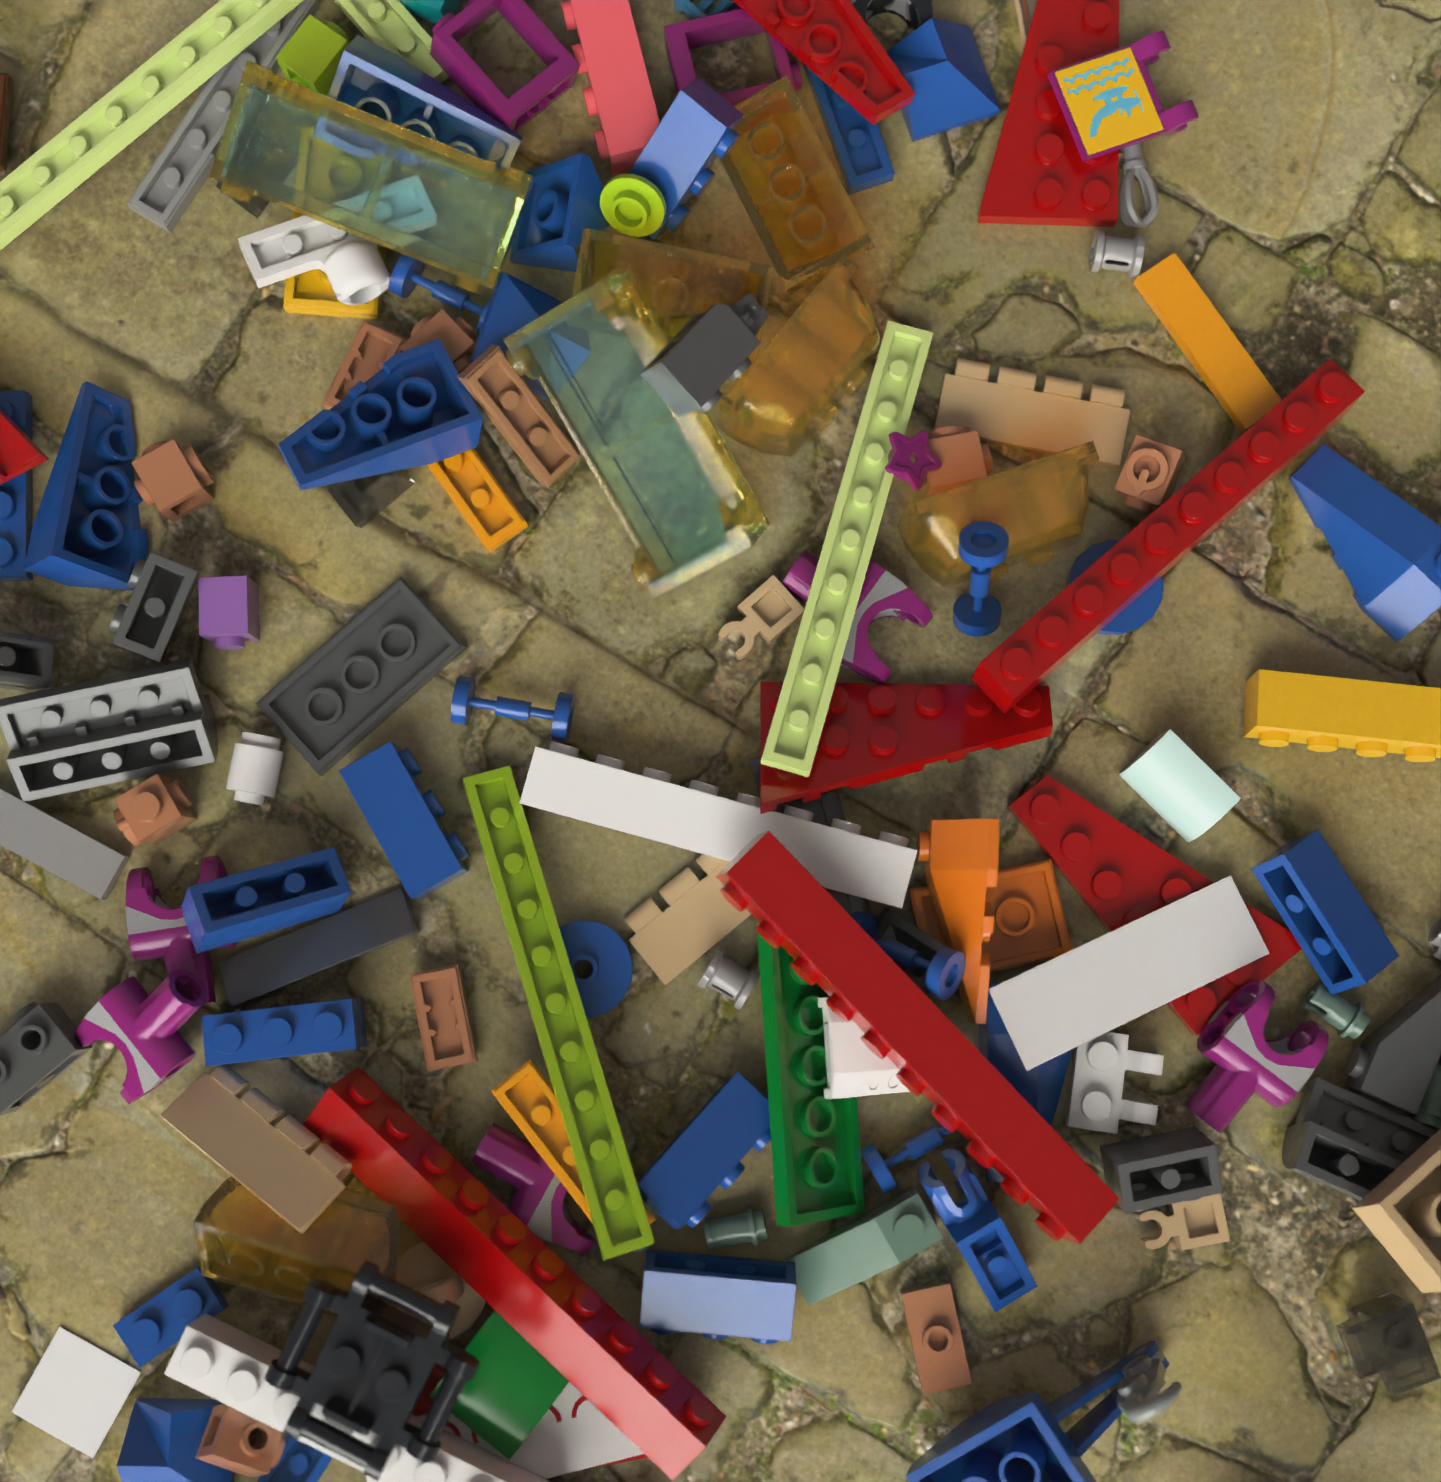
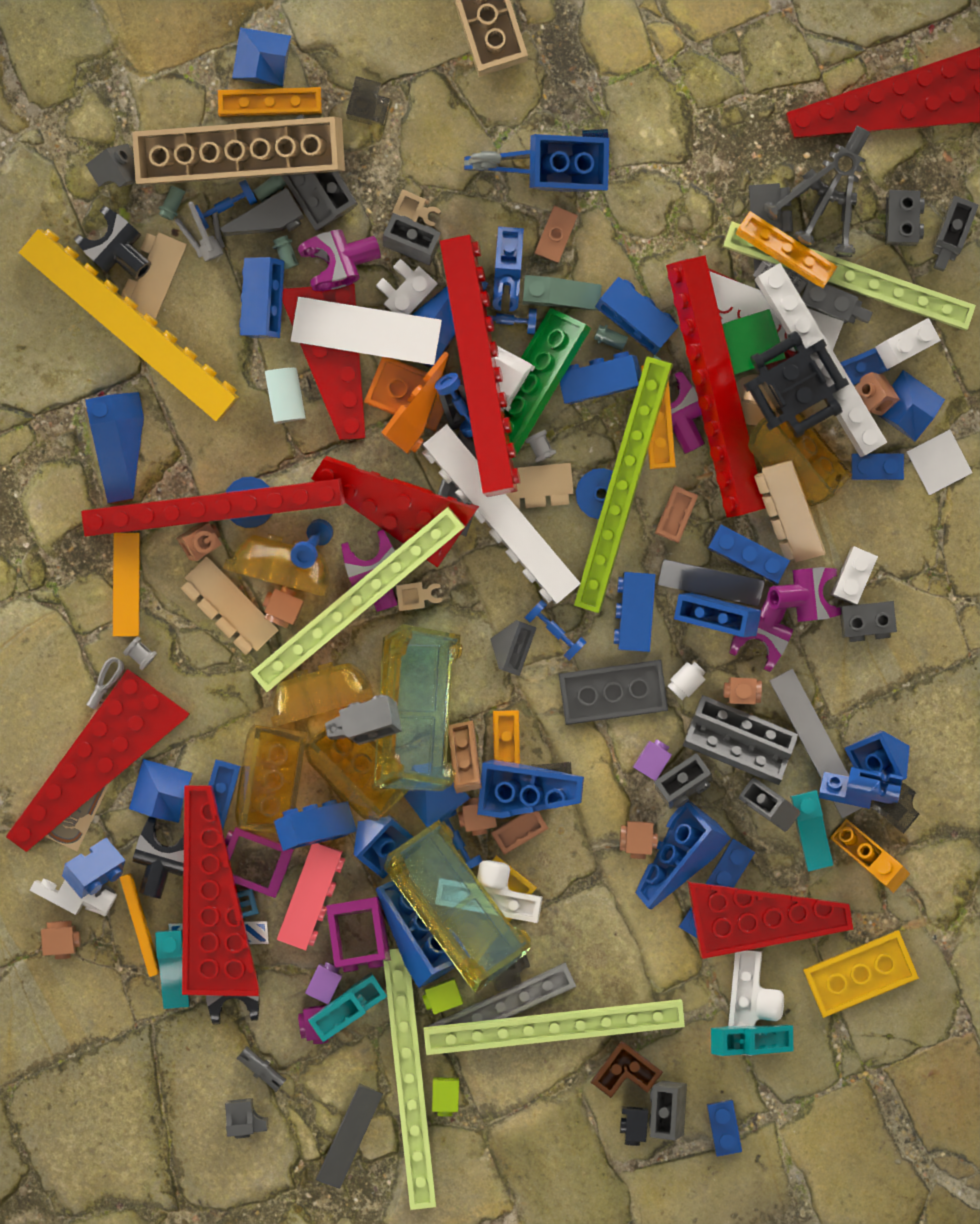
camera: 150 degrees left, 5 degrees up
(92, 1113) = (854, 575): none -> white brick
(562, 639) = (512, 646): none -> dark grey slope
(633, 205) = (349, 818): lime piece -> none
(903, 467) = (308, 623): magenta plate -> none
(1113, 100) = (91, 723): flag -> none

